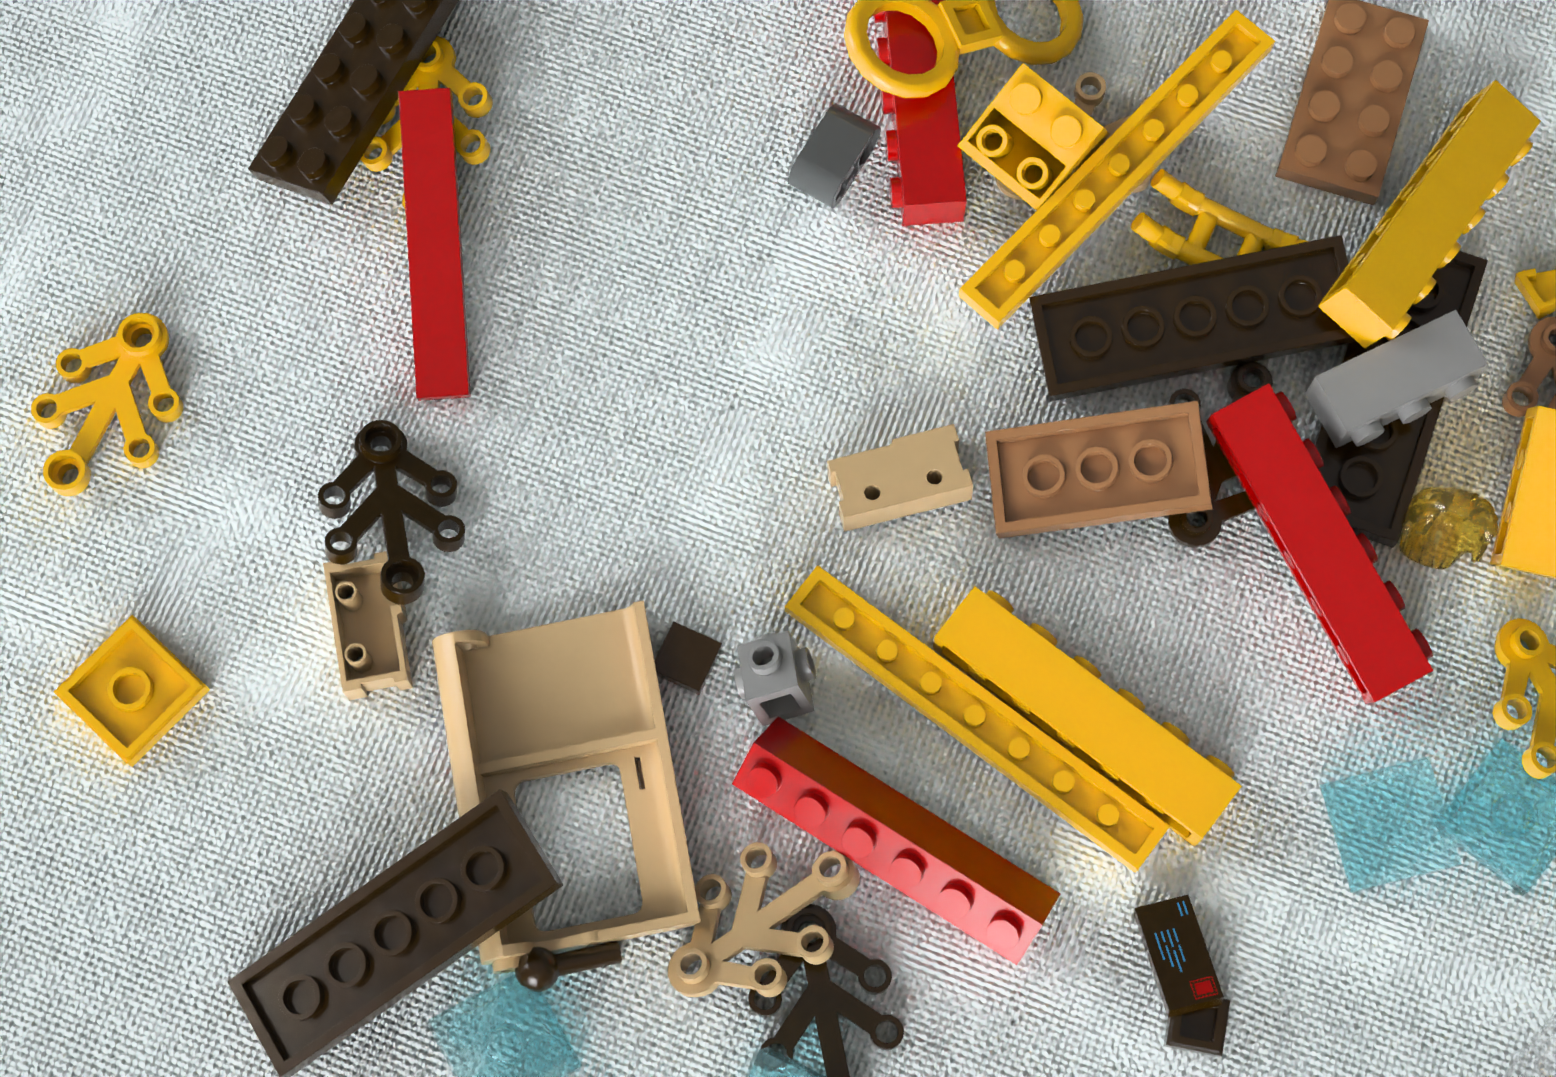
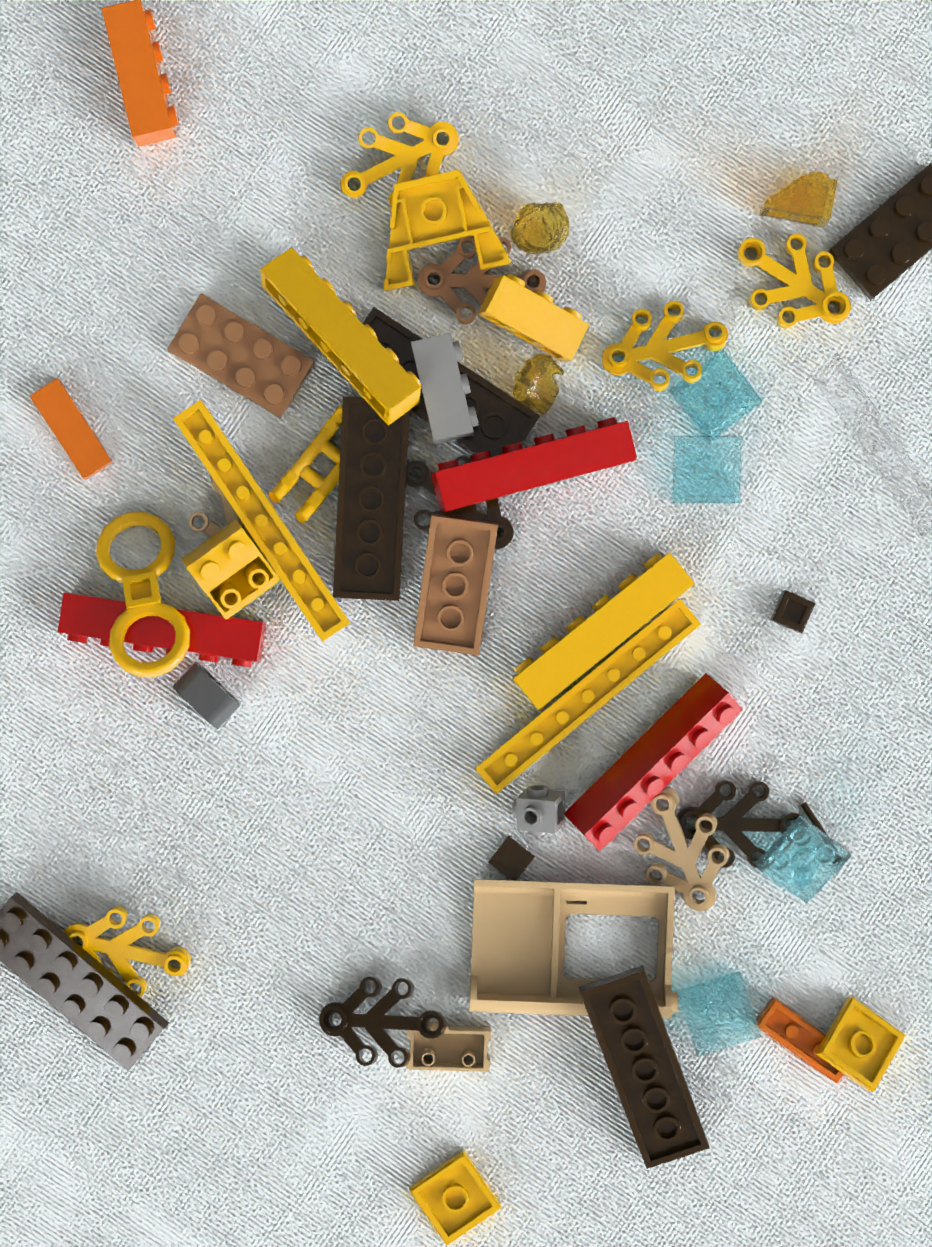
camera: 80 degrees left, 15 degrees up
(110, 396) = (263, 1181): yellow plant -> none
(434, 244) = (210, 962): red tile -> none
(542, 967) = (679, 982): dark brown bar -> none
(900, 478) = (429, 704): tan piece -> none
(1178, 956) = (755, 613): dark brown tile -> none

